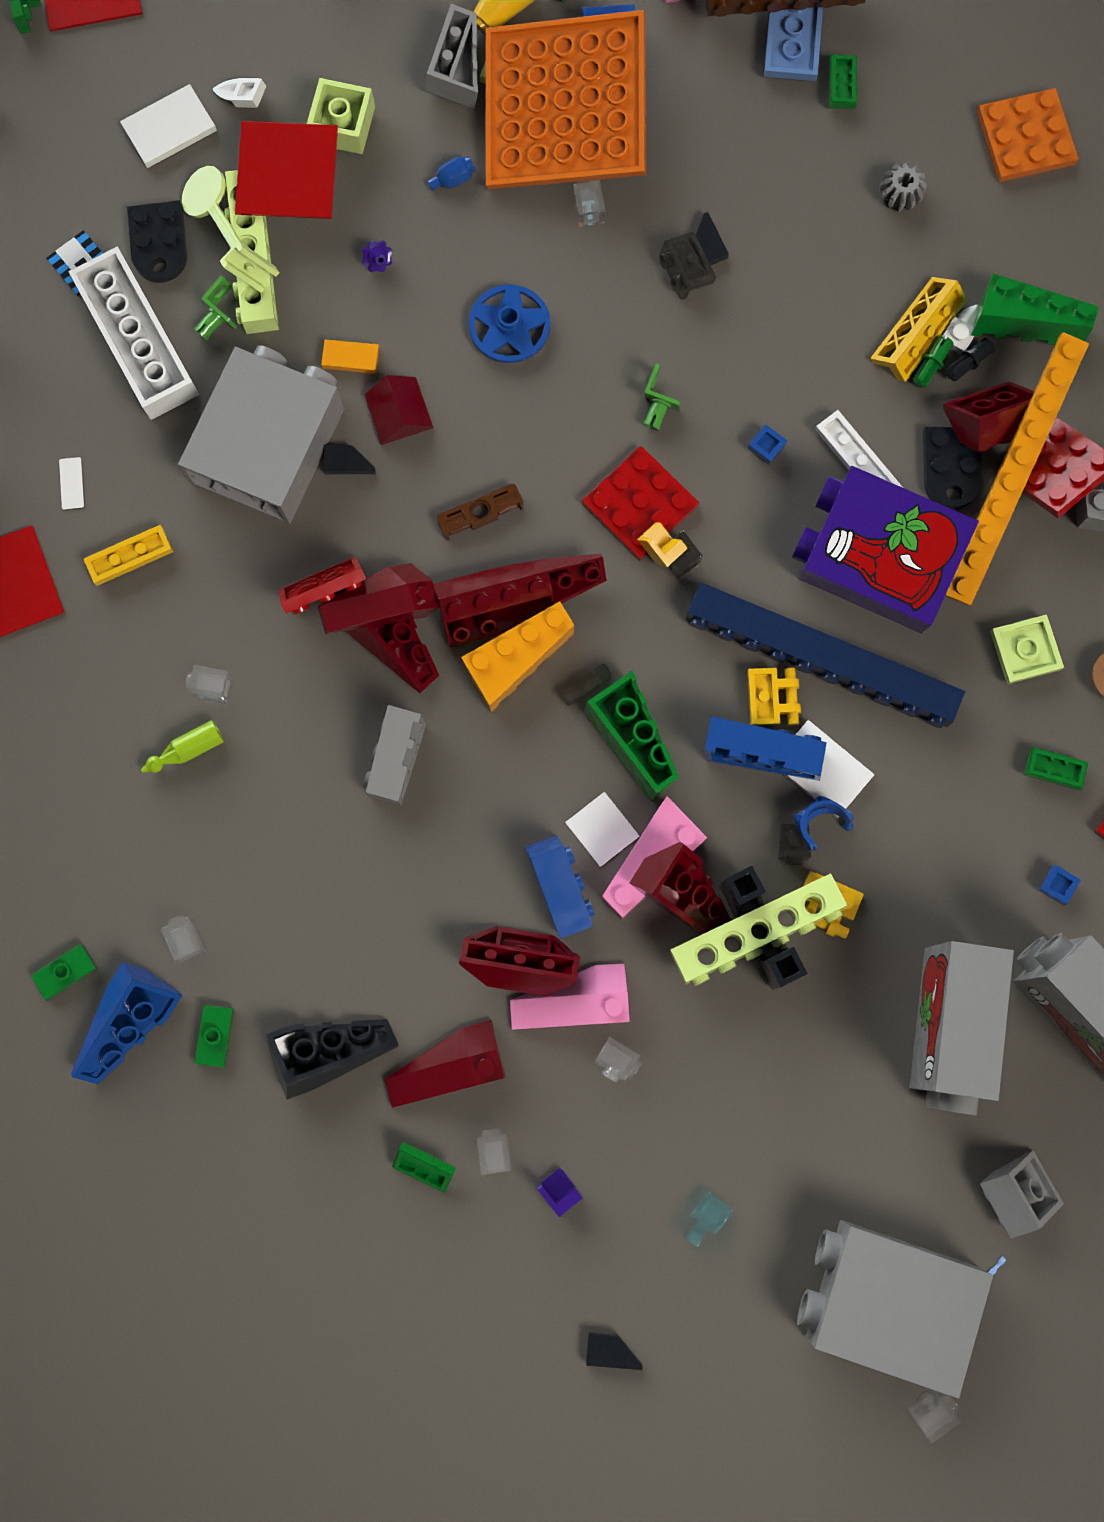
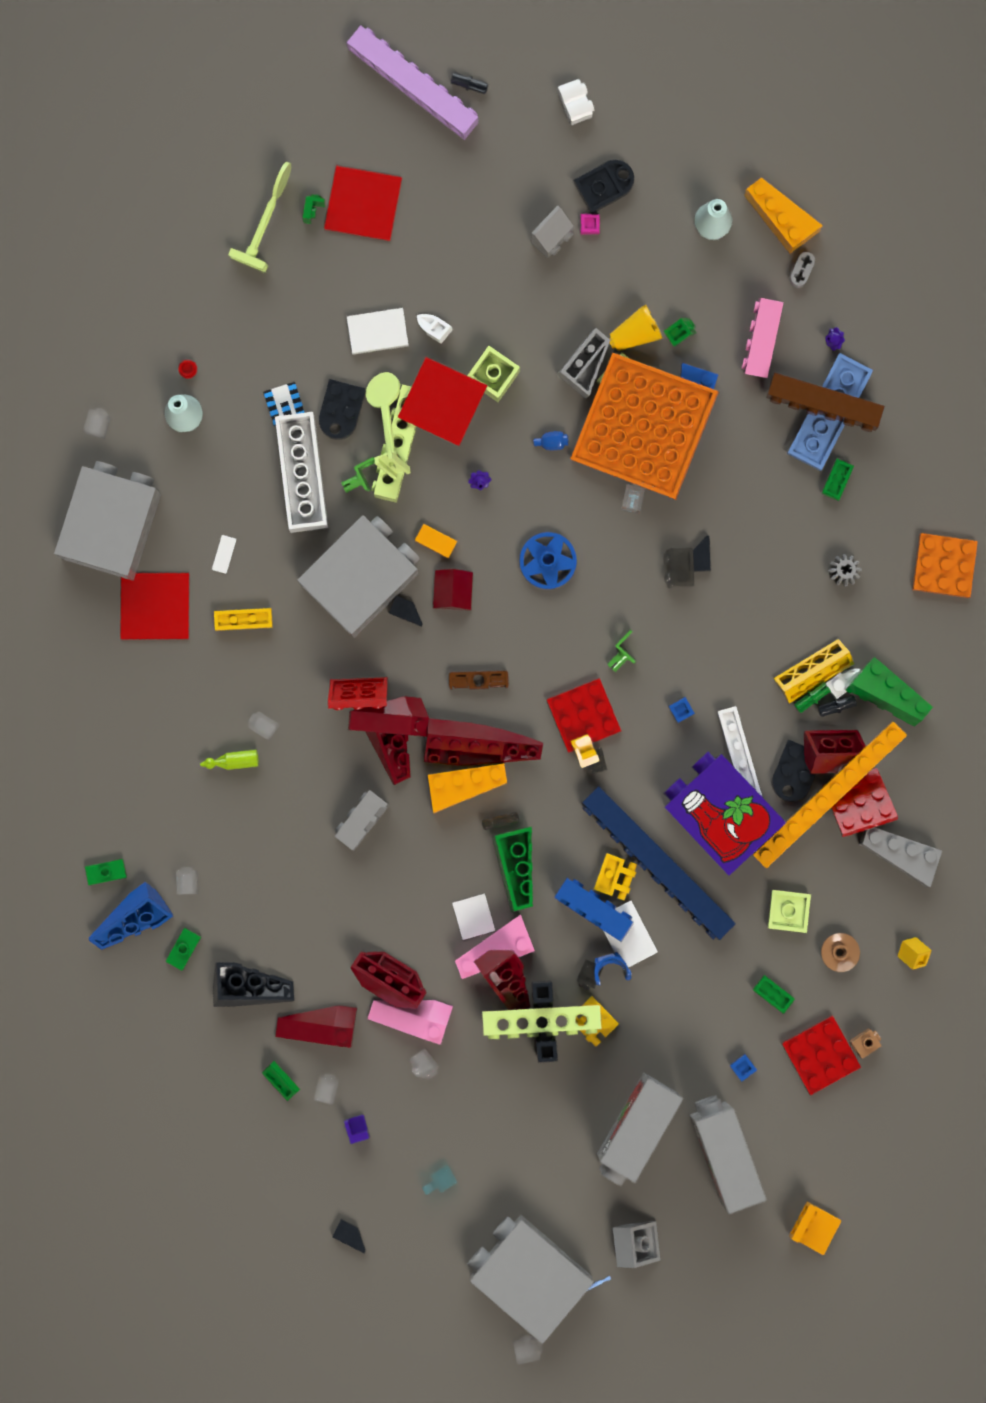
camera: 20 degrees right, 5 degrees up
(560, 886) = (432, 943): blue wedge -> none

